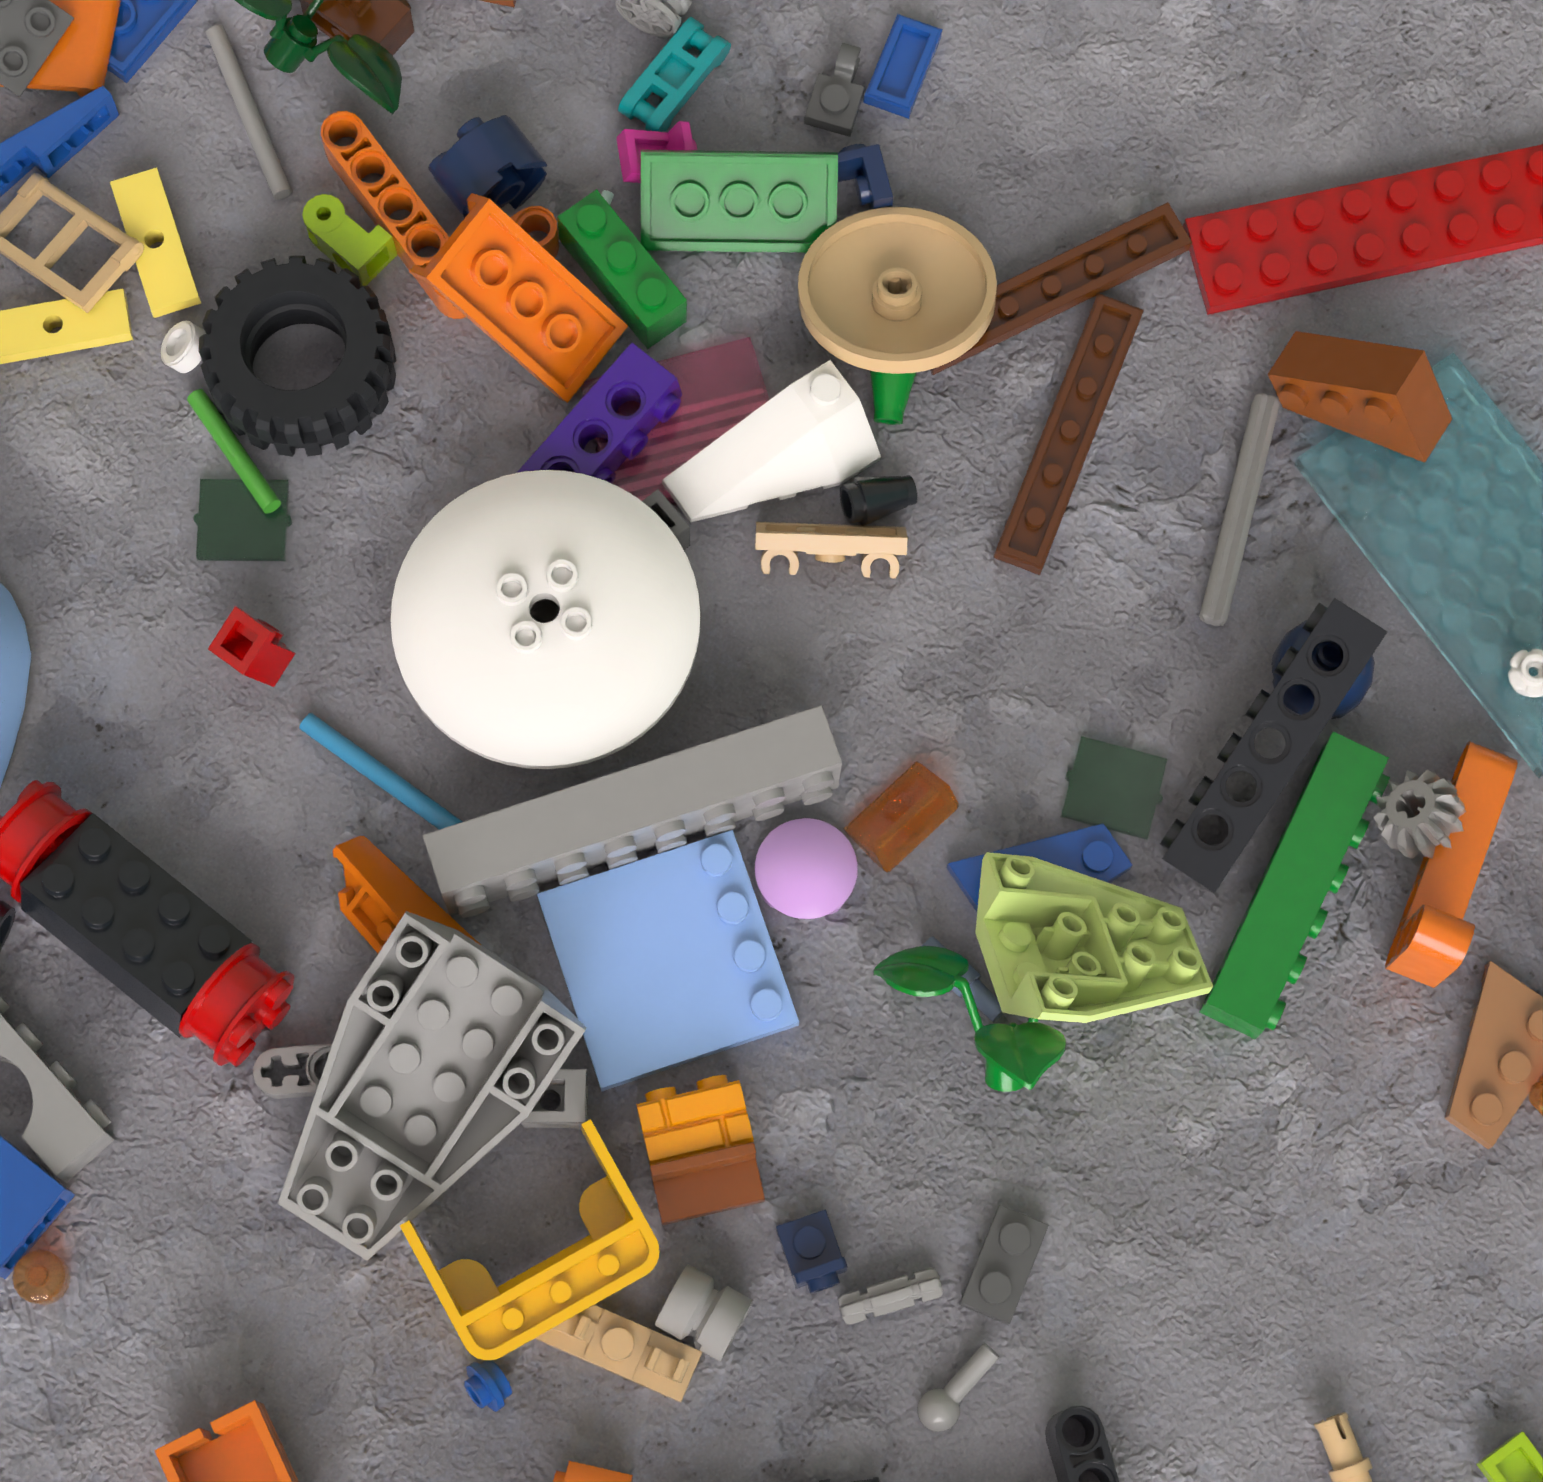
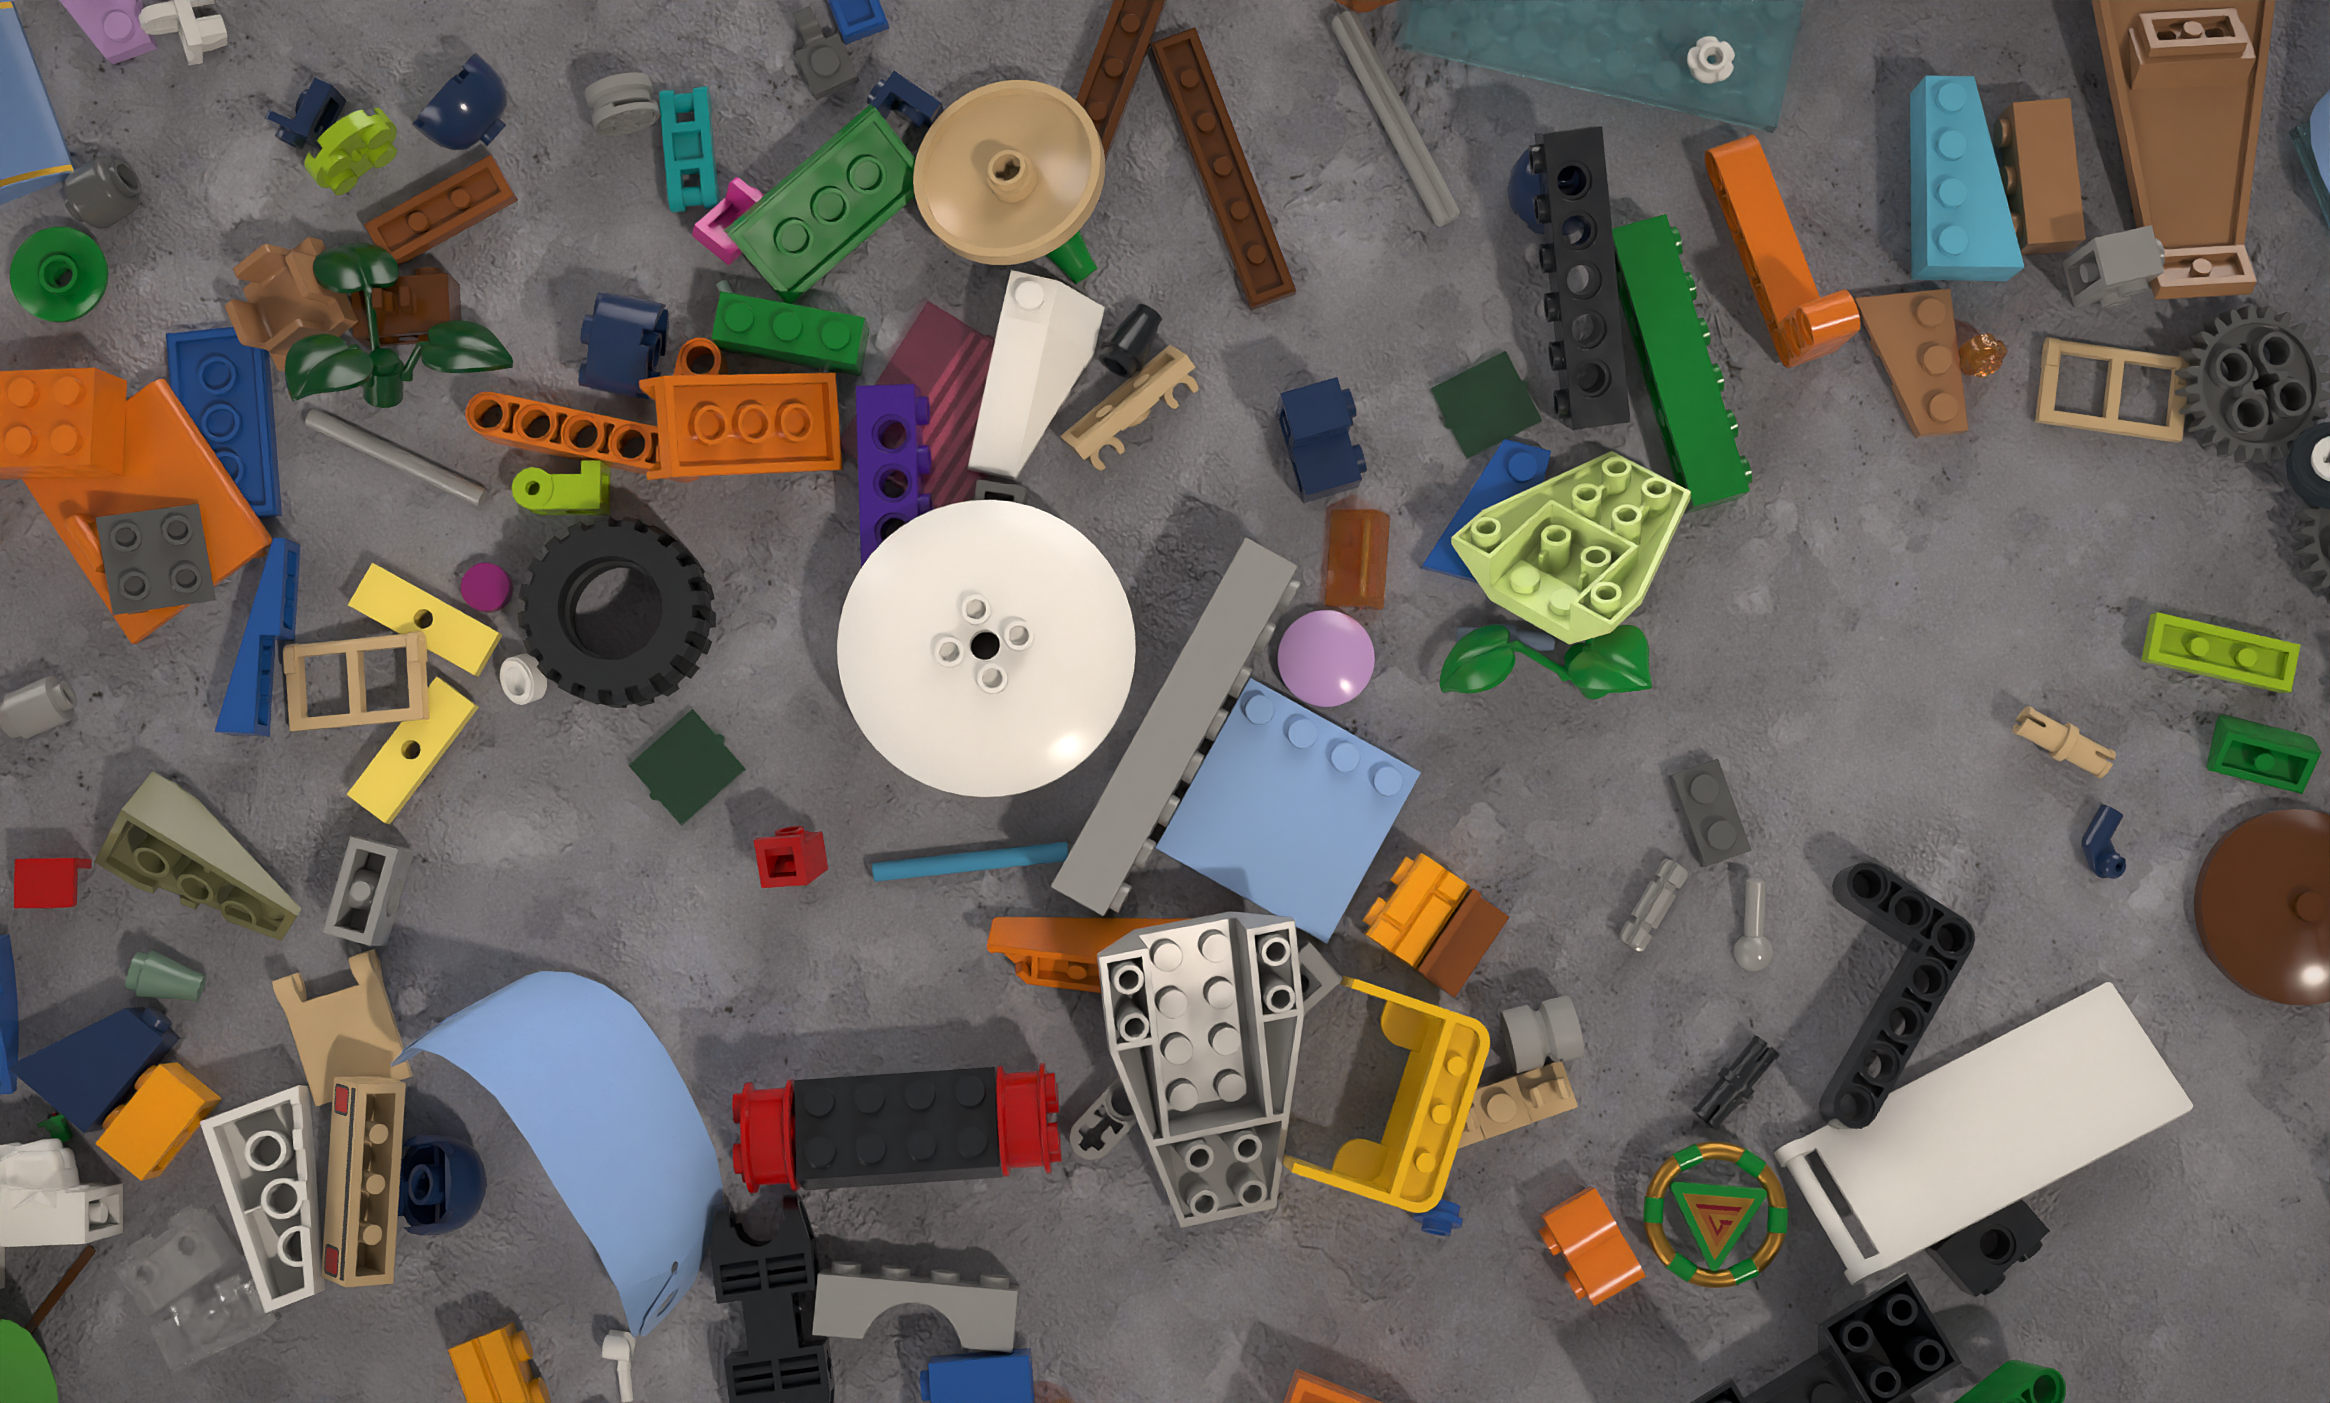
camera: 40 degrees left, 10 degrees up
(222, 259) = (486, 587): none -> magenta tile
(234, 451) = (634, 723): bright green bar -> none
(812, 1252) = (1574, 923): dark blue bracket -> none
(956, 685) = (1317, 438): none -> dark blue brick
(1419, 814) = (1741, 235): light grey gear -> none

